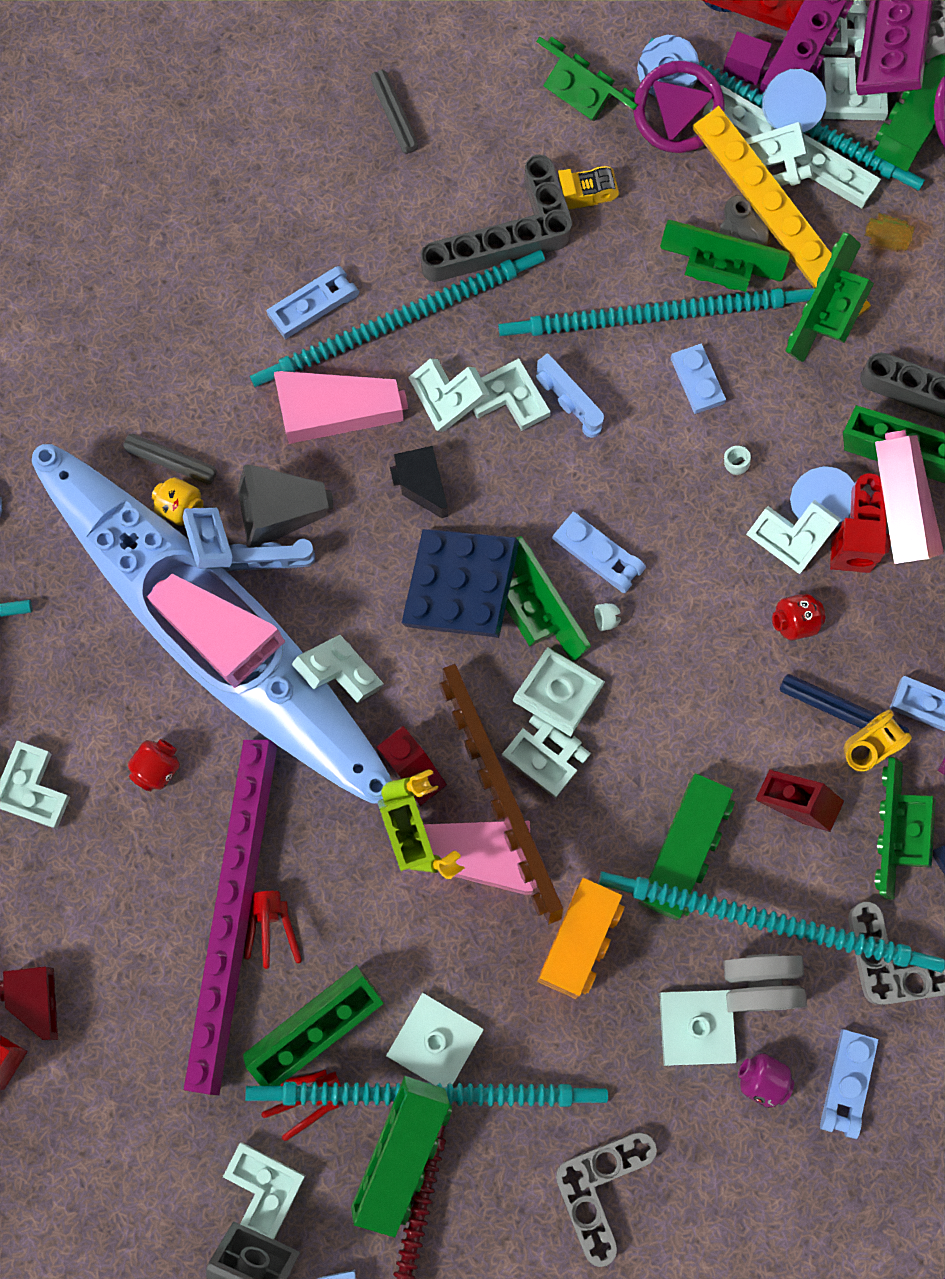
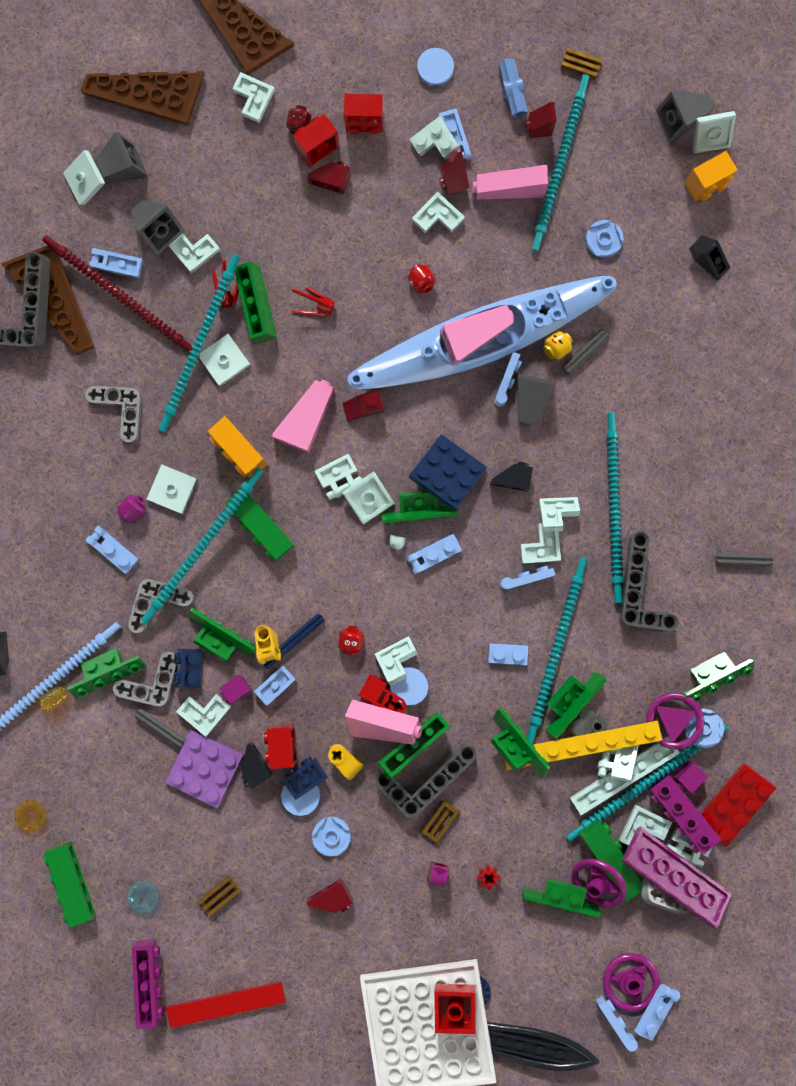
camera: 120 degrees right, 10 degrees up
(207, 537) = (527, 350): light blue plate -> none
(230, 918) = (330, 287): magenta plate -> none
(312, 302) = (644, 464): light blue plate -> none
(336, 404) = (578, 447): bright pink slope -> none
(338, 661) = (433, 393): light aqua plate -> none
(400, 1157) = (176, 317): green brick -> none
(407, 829) = (325, 383): lime torso -> none
(504, 804) = (318, 438): reddish brown plate -> none
(588, 187) = (648, 646): yellow leg -> none
(733, 456) = (454, 650): light aqua hinge -> none
(764, 979) = (174, 527): light grey wheel -> none
(794, 98) = (647, 786): light blue tile -> none
(801, 799) = (256, 593): dark red slope -> none
(889, 232) = (546, 803): clear yellow brick -> none

